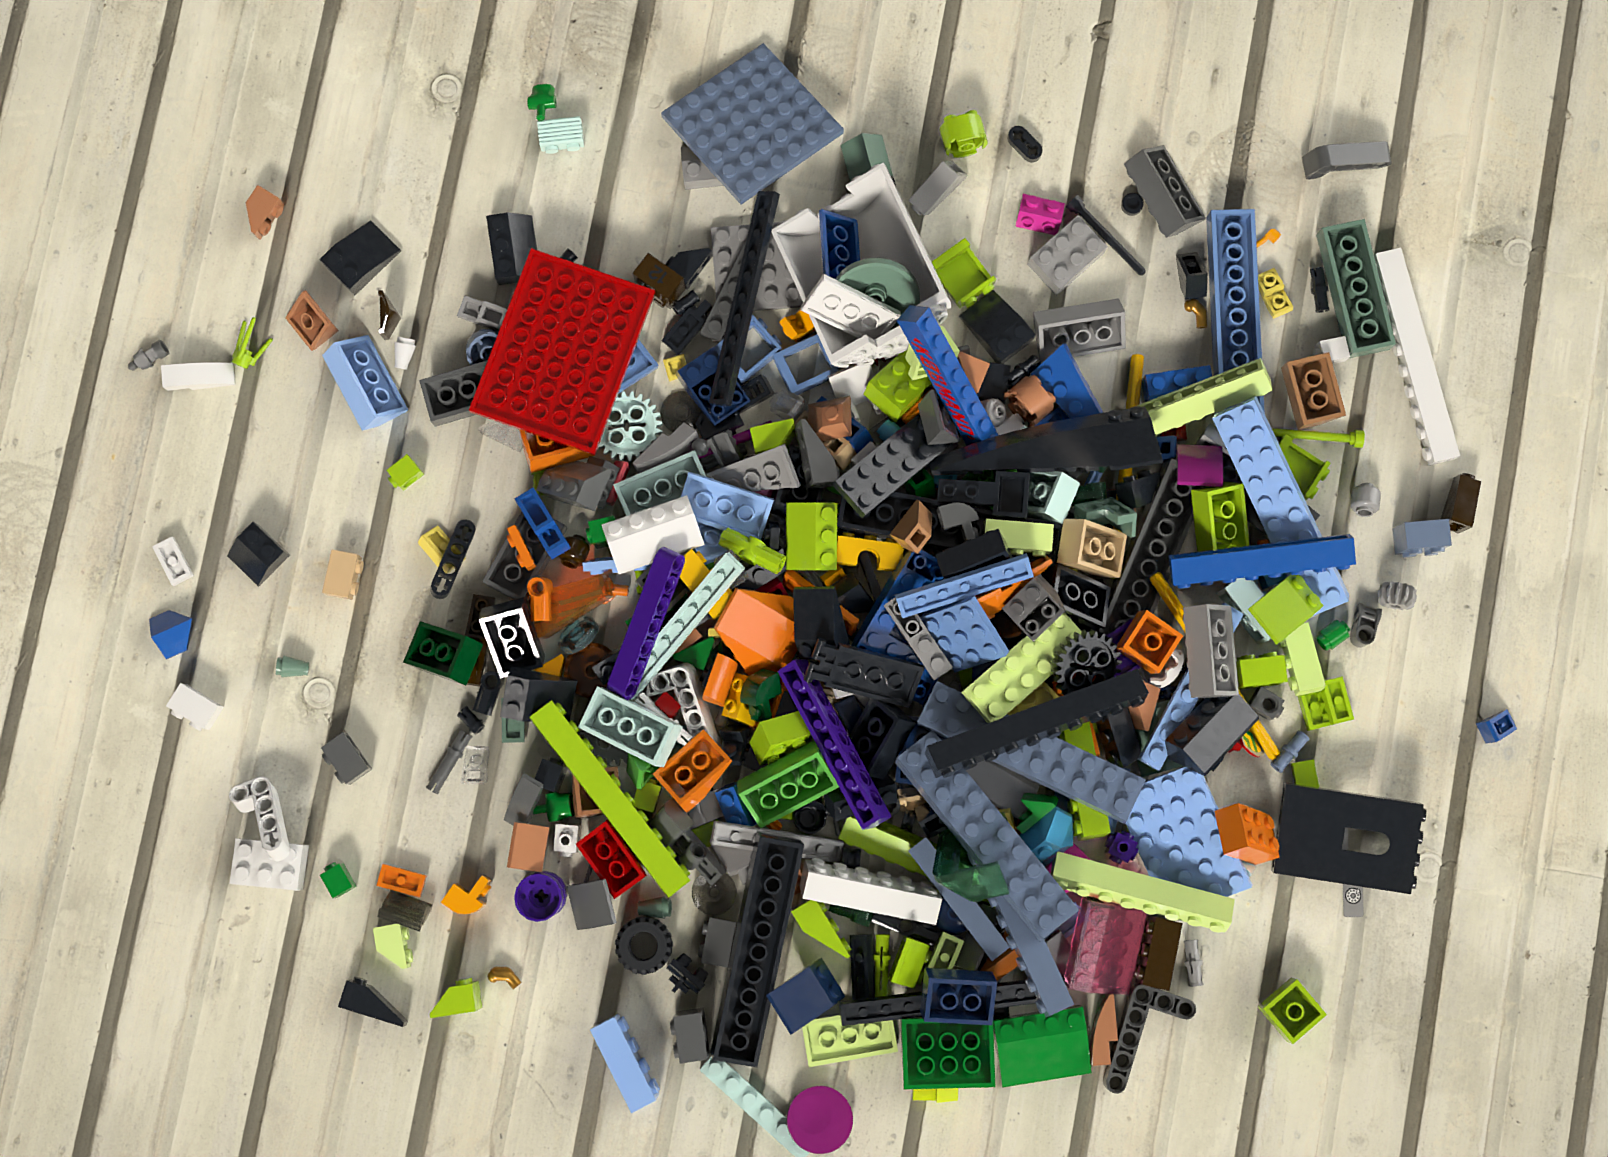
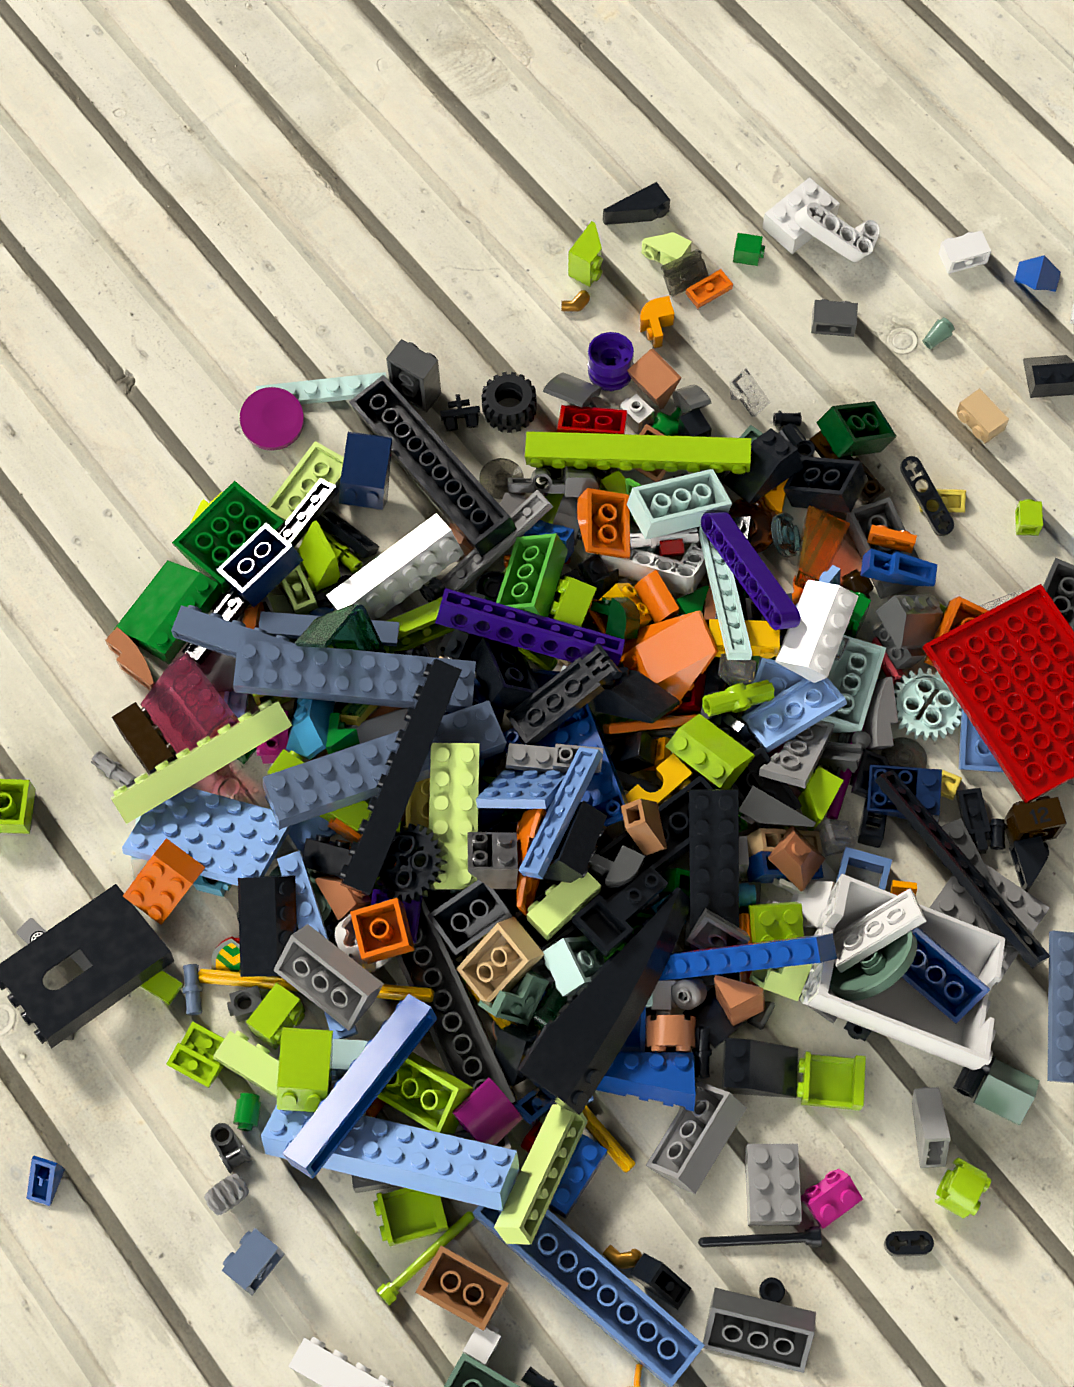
camera: 135 degrees right, 15 degrees down
(449, 761) = (772, 389): dark grey pin -> none
(540, 602) = (843, 526): orange piece -> none
(625, 1063) = (439, 324): light blue brick -> none
(657, 907) = (520, 434): sand green cone -> none
(717, 942) = (463, 446): dark grey brick -> none
(772, 341) = (900, 824): medium blue window -> none
(814, 922) = (397, 521): lime slope -> none
(1113, 843) = (248, 788): dark purple brick -> none
(1137, 1027) = (113, 684): dark grey beam -> none
(1273, 293) = (580, 1343): light yellow slope -> none
(1365, 499) = (329, 1248): light grey head -> none
(1462, 502) = (248, 1329): dark brown slope -> none

